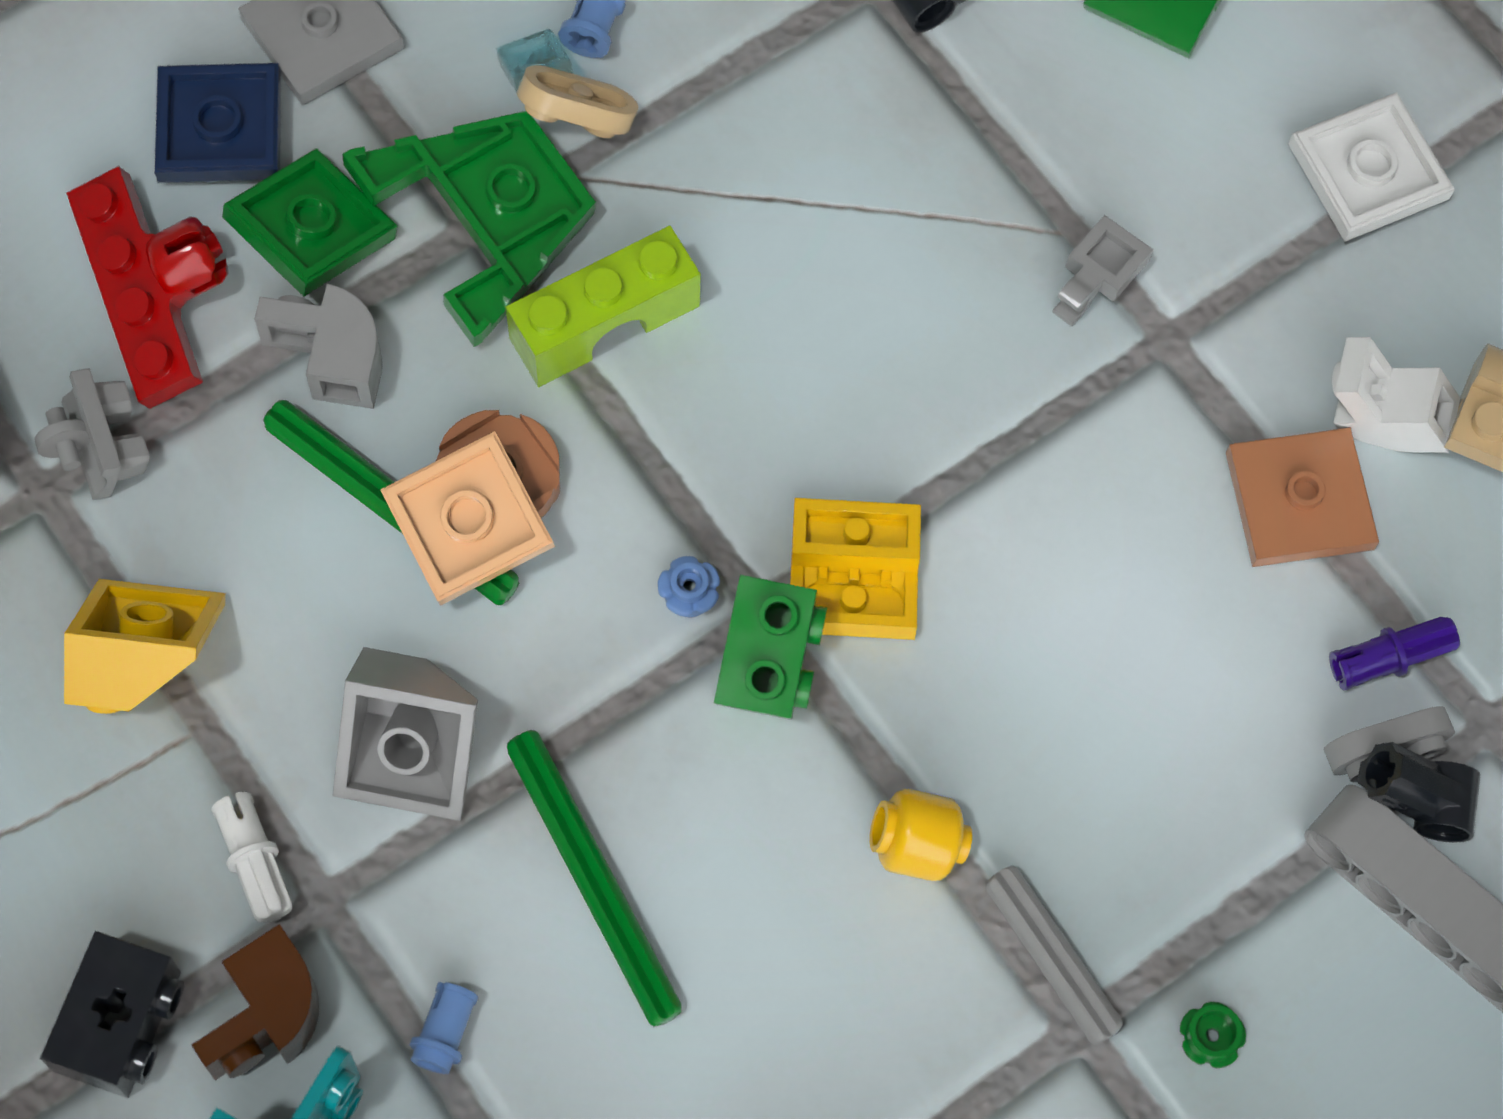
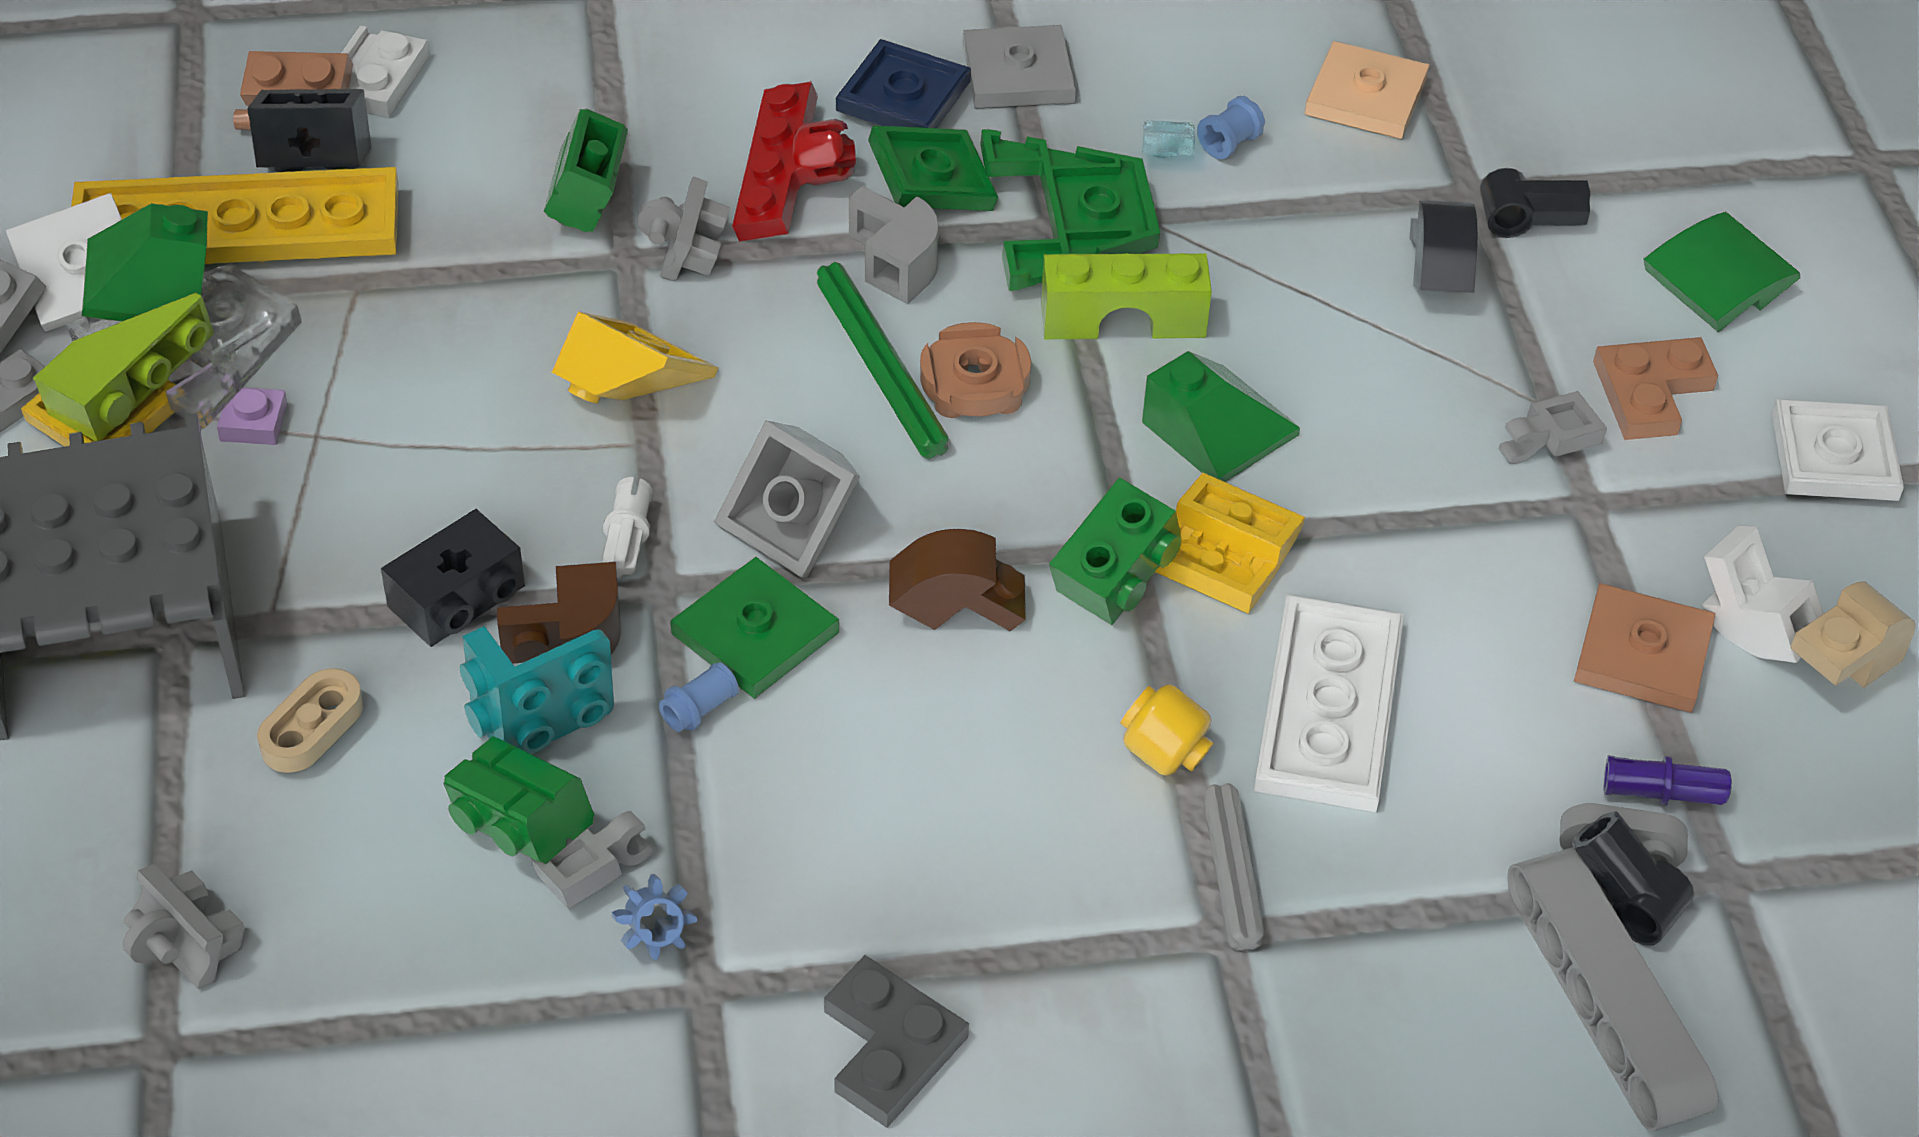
camera: 30 degrees right, 20 degrees down
(448, 908) = (755, 626): none -> green plate
(467, 518) = (929, 375): light nougat plate -> none
(575, 99) = (1169, 155): tan plate -> none
(594, 878) = (881, 662): green axle -> none
(625, 760) = (956, 571): none -> reddish brown brick
(687, 602) = (1077, 499): medium blue plate -> none
(769, 415) = (1212, 416): none -> green slope
(893, 90) = (1445, 246): none -> black brick
(1046, 711) = (1330, 704): none -> white tile
(1147, 155) = (1644, 378): none -> nougat plate
(1217, 1018) = (1342, 966): green plate -> none

